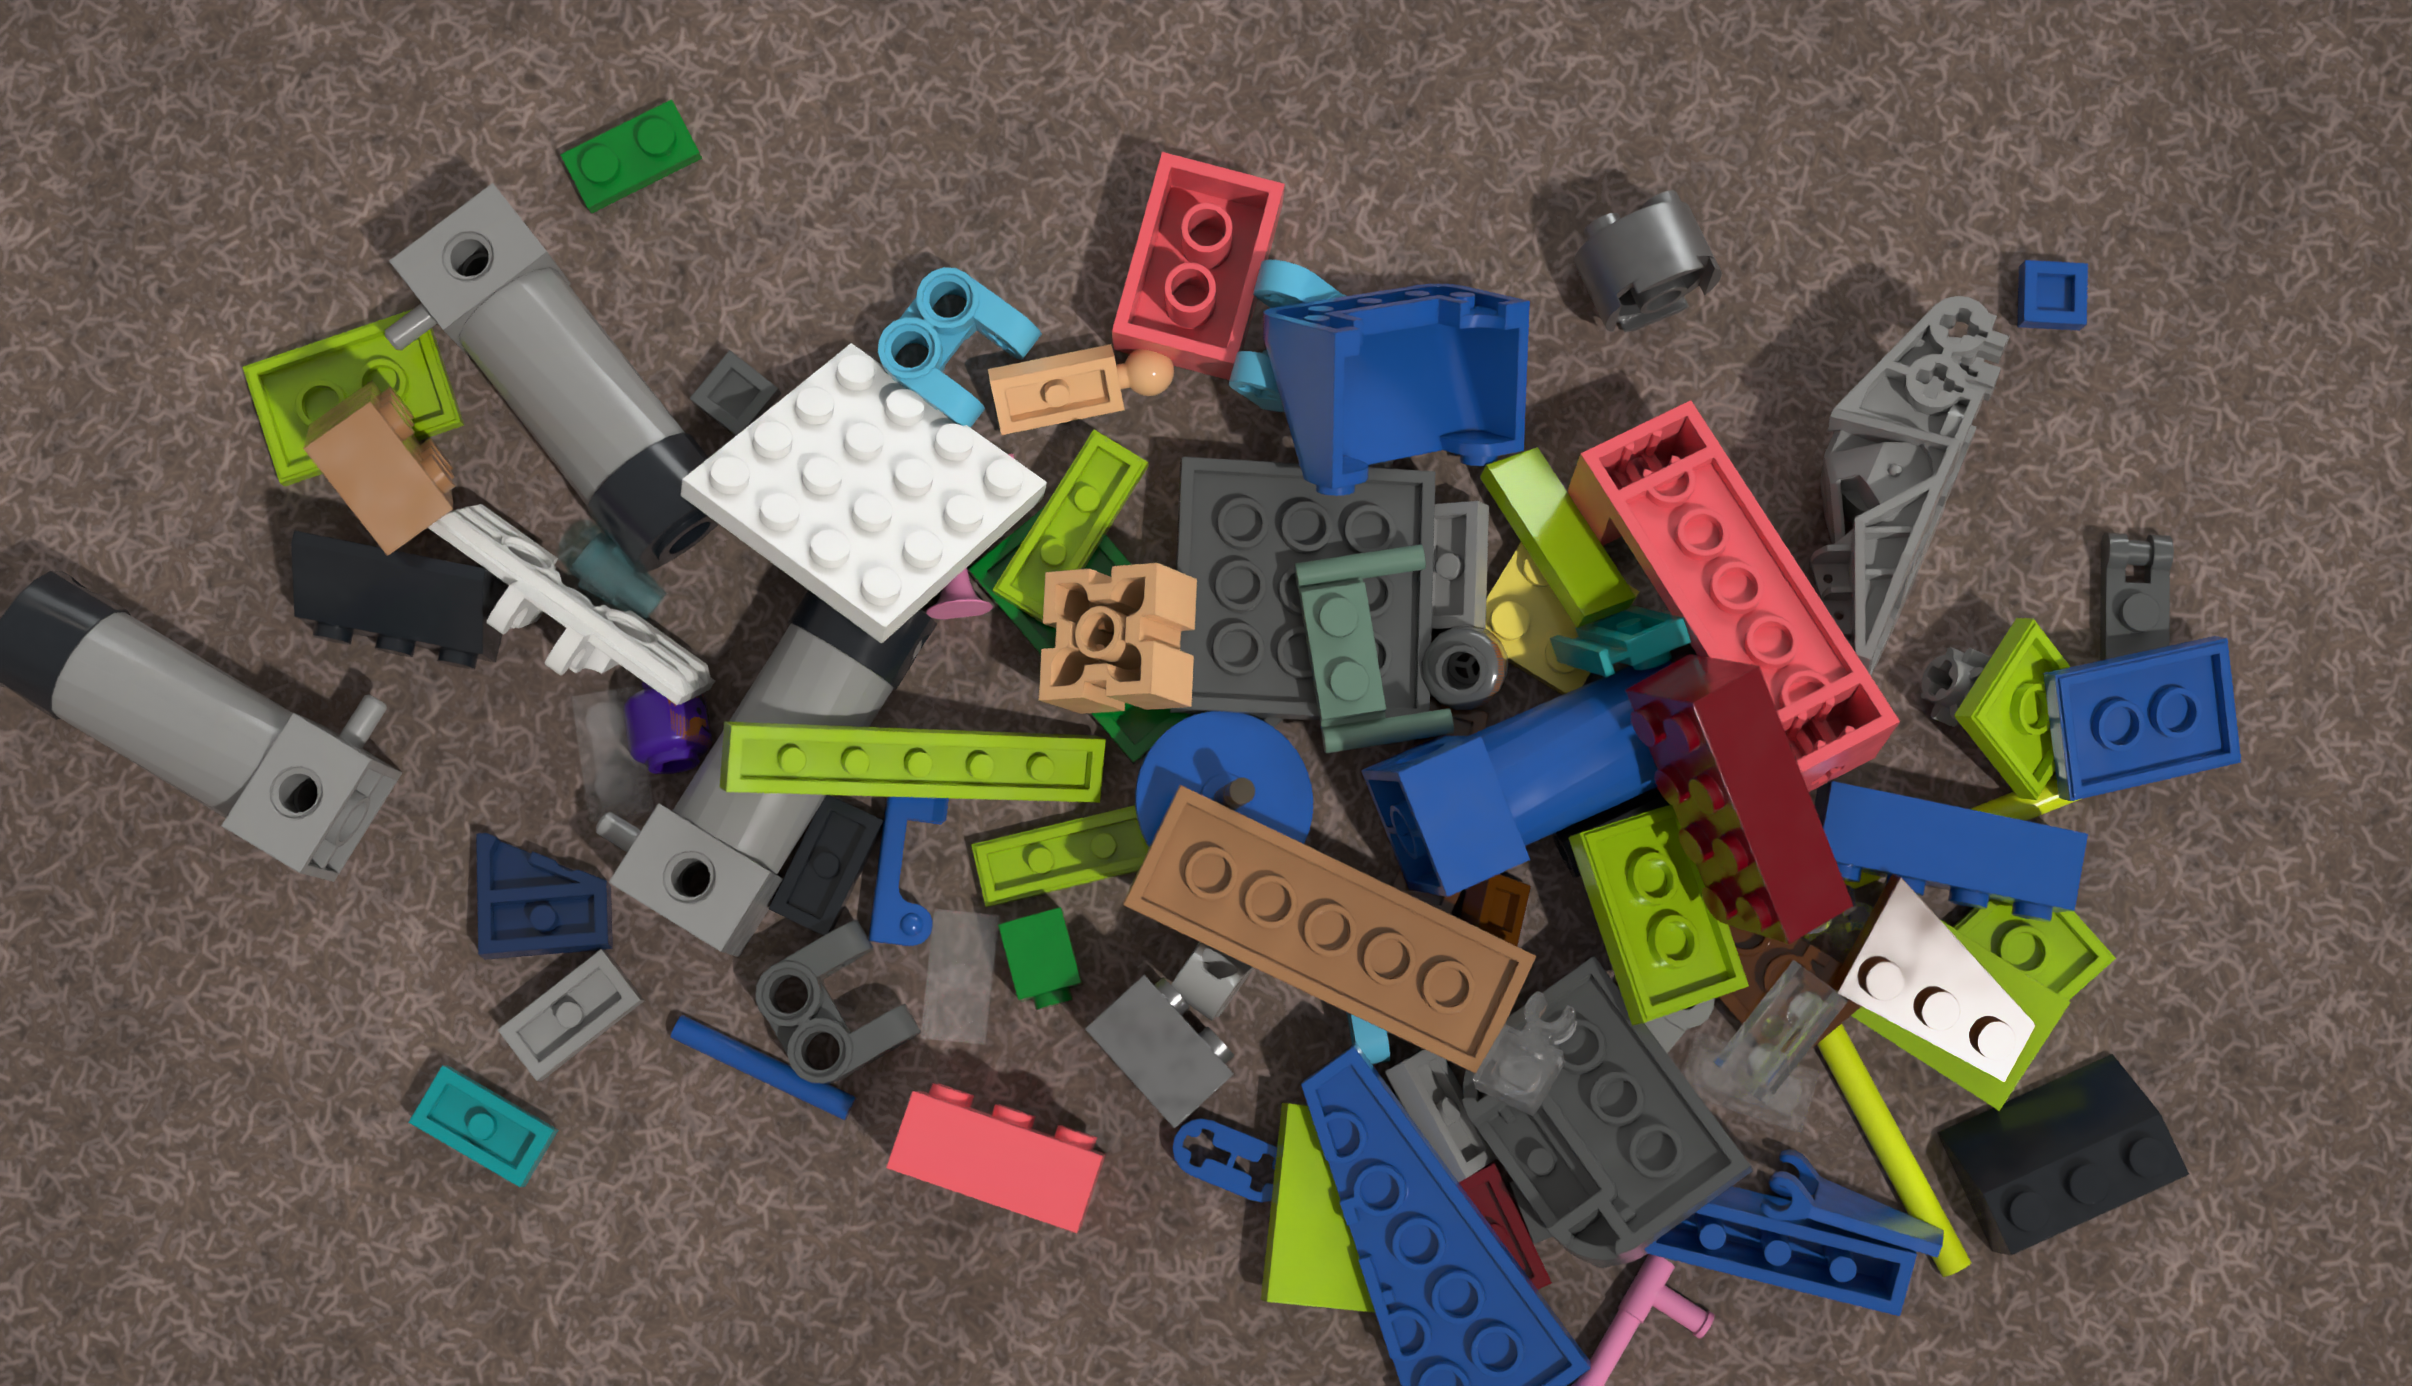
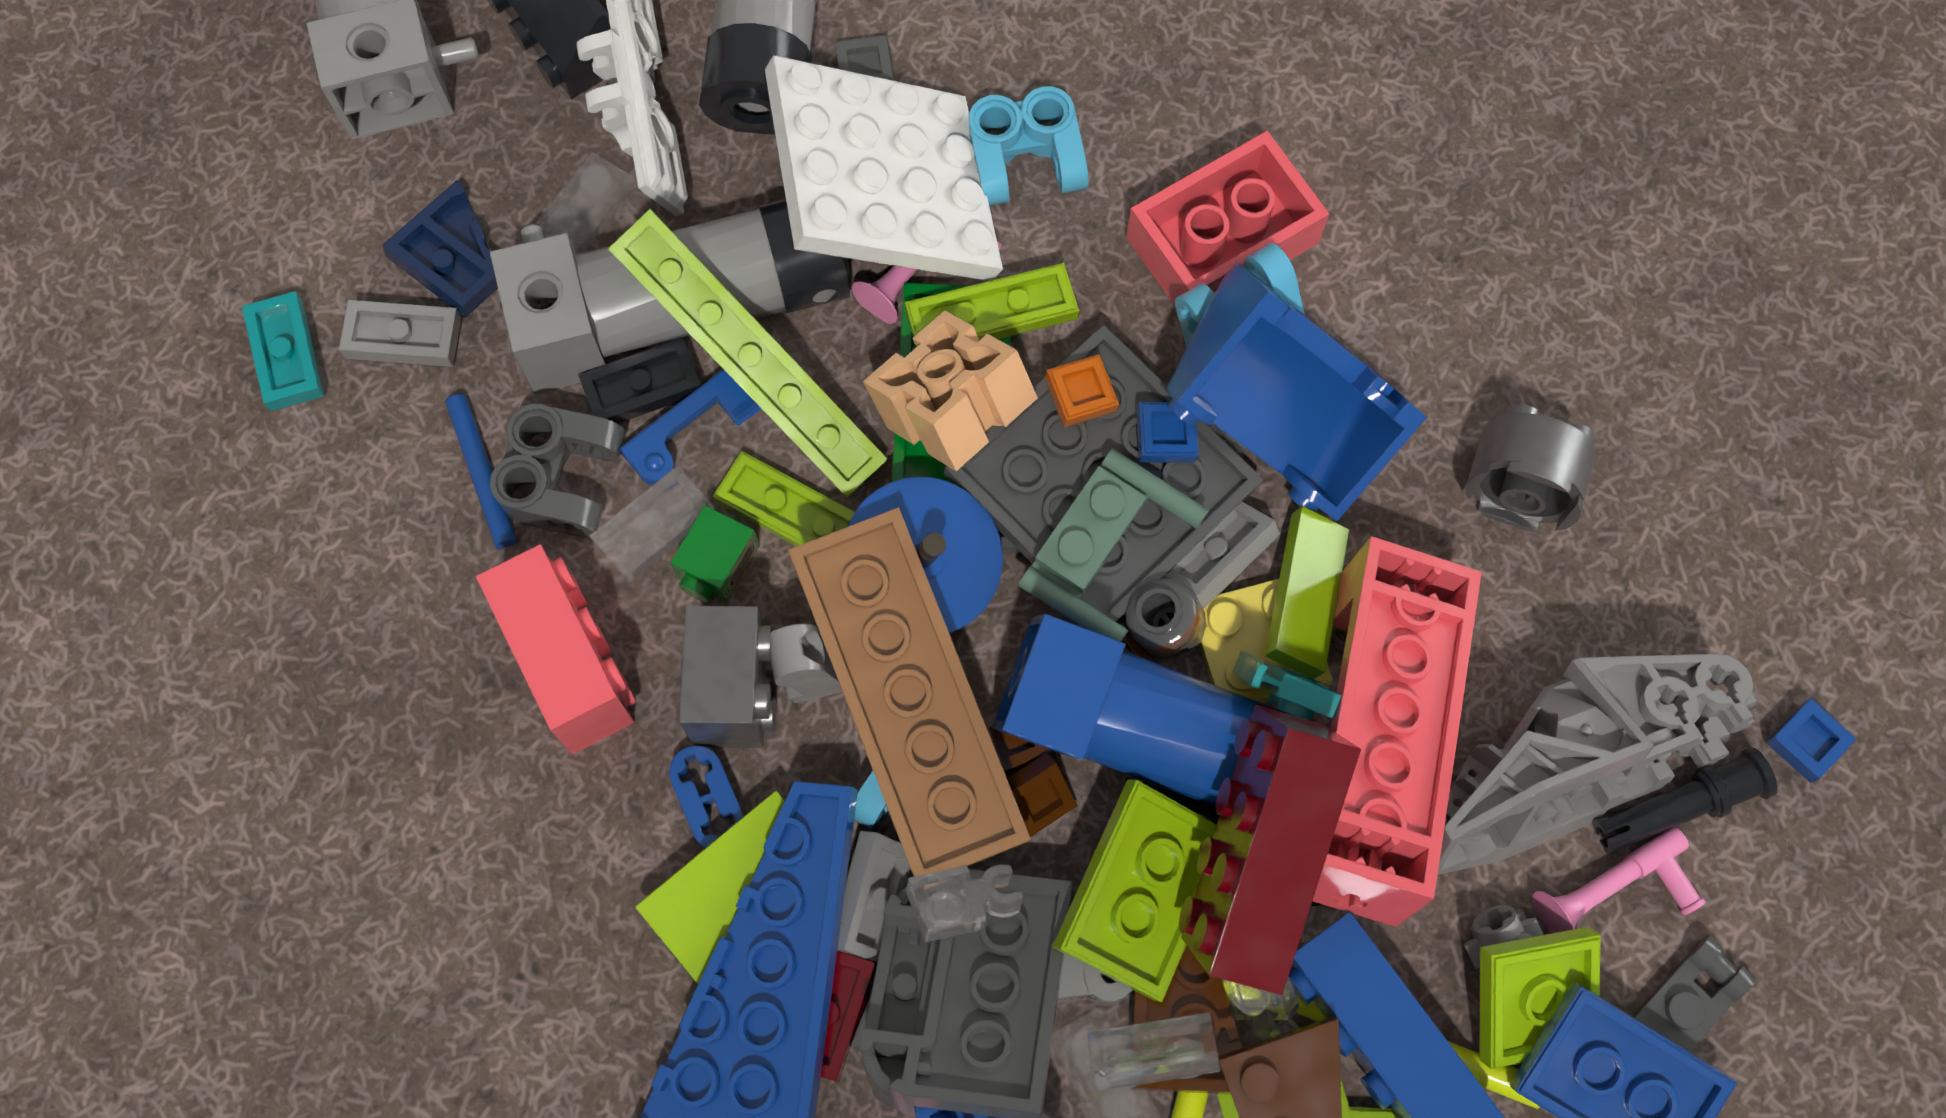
camera: 45 degrees right, 10 degrees down
(609, 577) = (681, 101): clear light blue cone -> none
(666, 734) = (619, 208): dark purple head -> none
(1073, 386) = (1078, 233): light nougat plate -> none
(1221, 535) = (1081, 390): none -> orange tile
(1322, 516) = (1164, 435): none -> blue tile
(2011, 414) = (1708, 793): none -> black pin
(2013, 502) = (1657, 855): none -> bright pink piece

